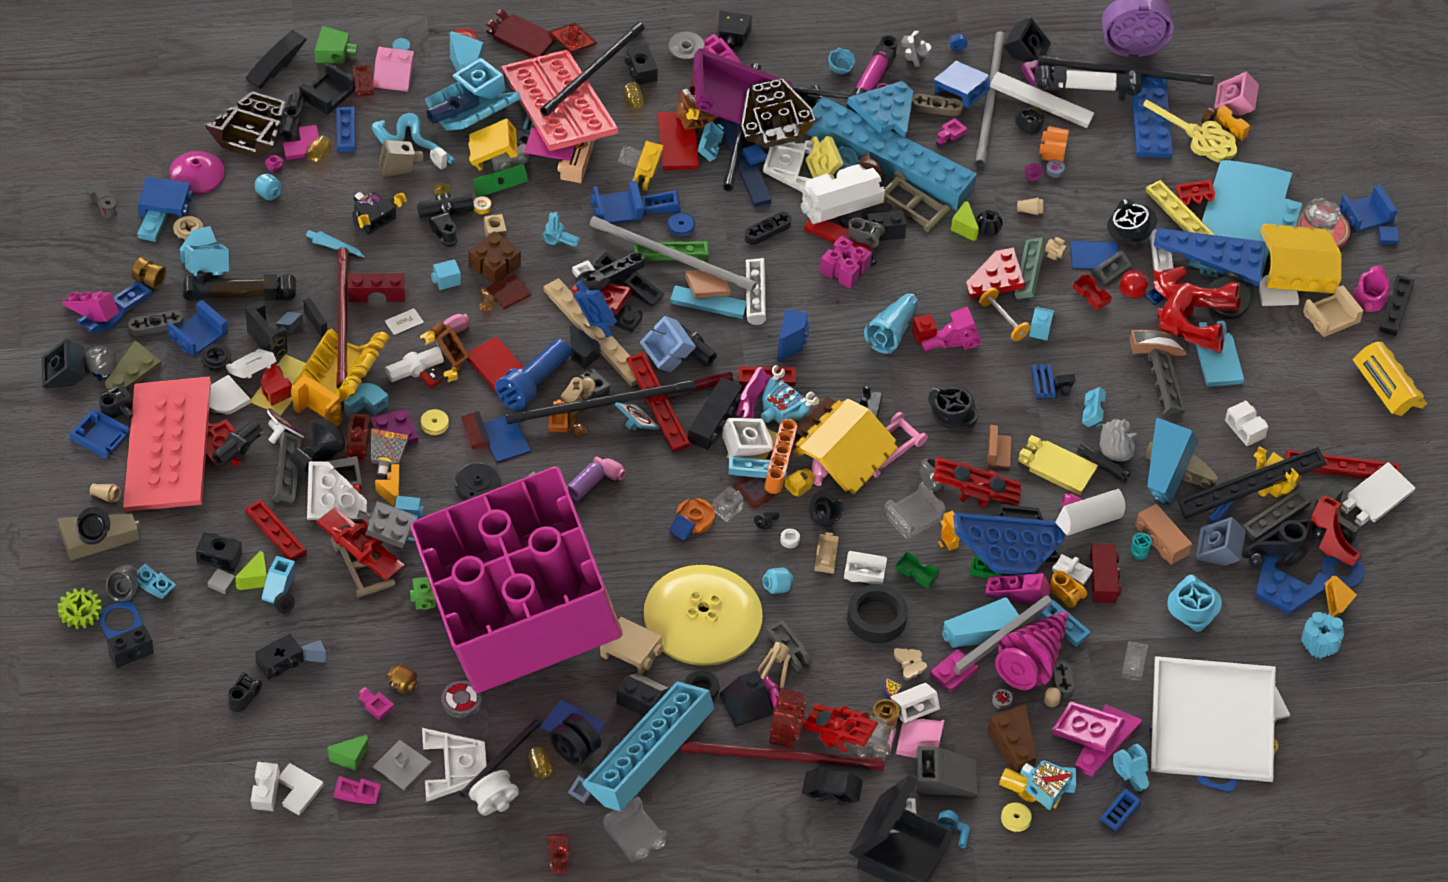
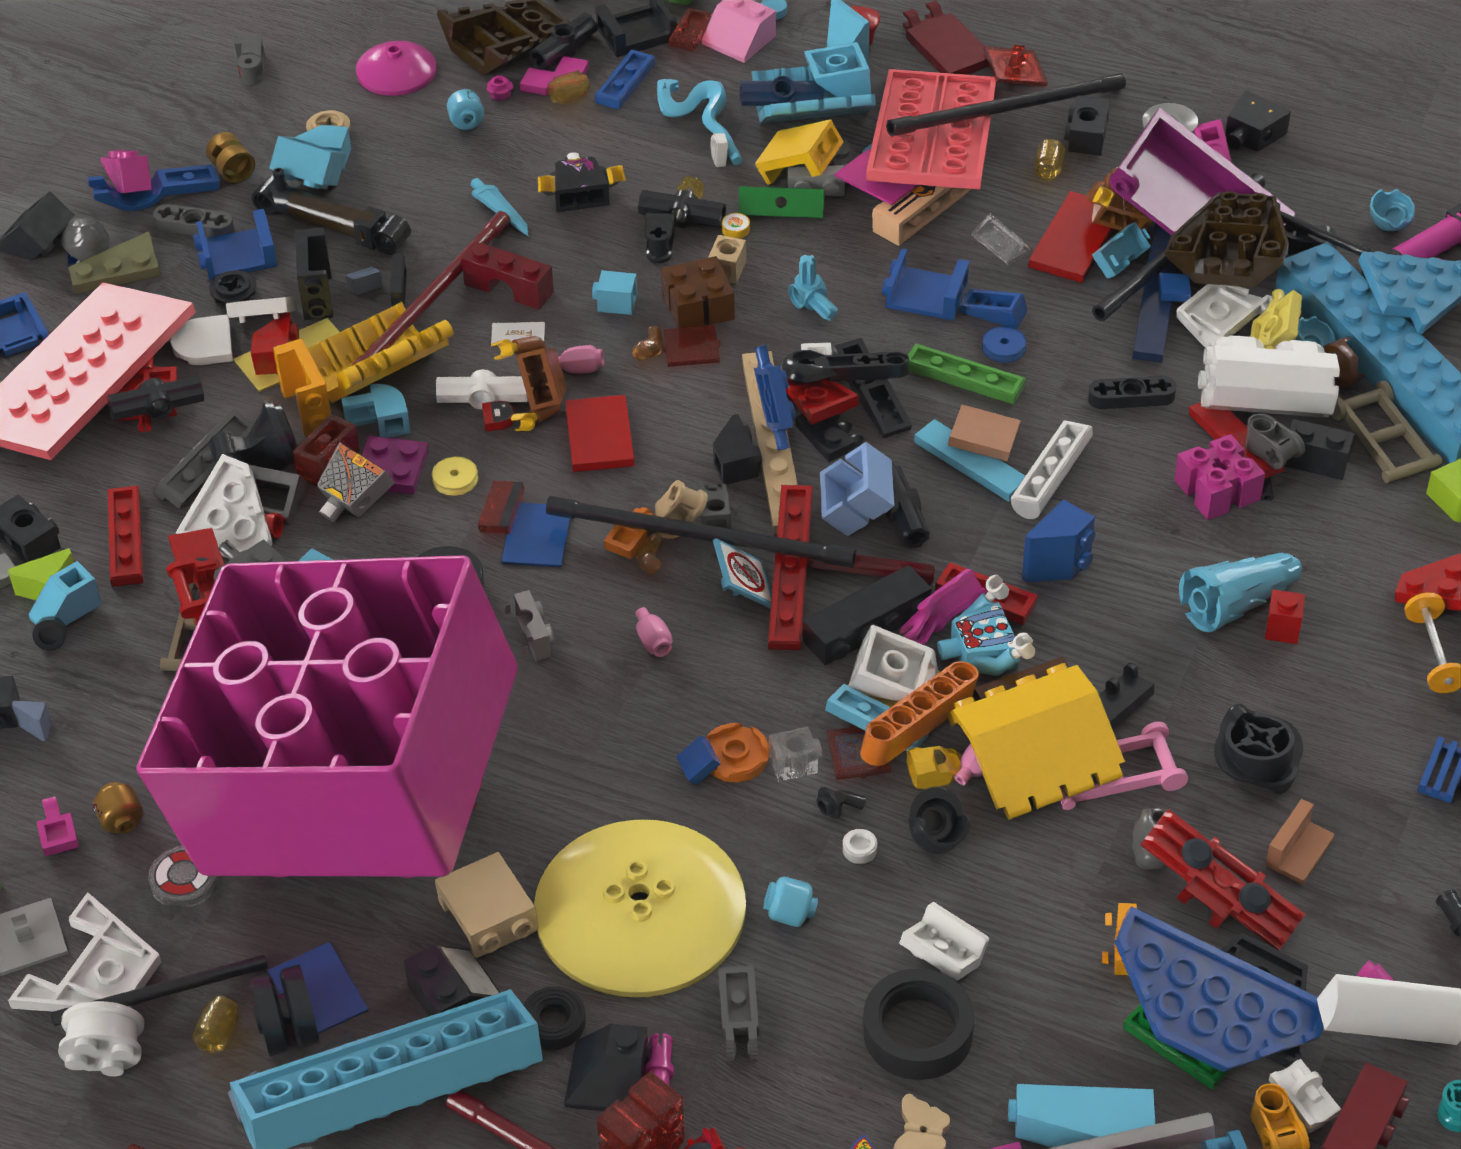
camera: 35 degrees right, 5 degrees down
(116, 402) = (56, 295): black piece -> none
(152, 225) = (300, 101): medium azure plate -> none
(165, 196) = (325, 79): blue panel -> none
(279, 424) = (240, 395): white shield -> none
(389, 488) = (328, 534): light orange slope -> none
(398, 157) = (660, 128): dark tan torso -> none
(519, 386) = (596, 468): blue piece -> none
(585, 481) = (601, 635): medium lavender brick -> none
(648, 163) = (1004, 249): yellow hinge -> none
(740, 281) = (1031, 443): light grey piece -> none
(777, 654) = (704, 1016): tan plant -> none
(826, 553) = (905, 883): tan piece -> none
(910, 566) = (1038, 991): green piece -> none
(915, 511) = (1089, 887): clear panel -> none
(955, 334) = (1335, 639): dark pink brick -> none
(1019, 588) = (1194, 1086): dark pink slope -> none
(1057, 465) = (1389, 912): light yellow tile -> none

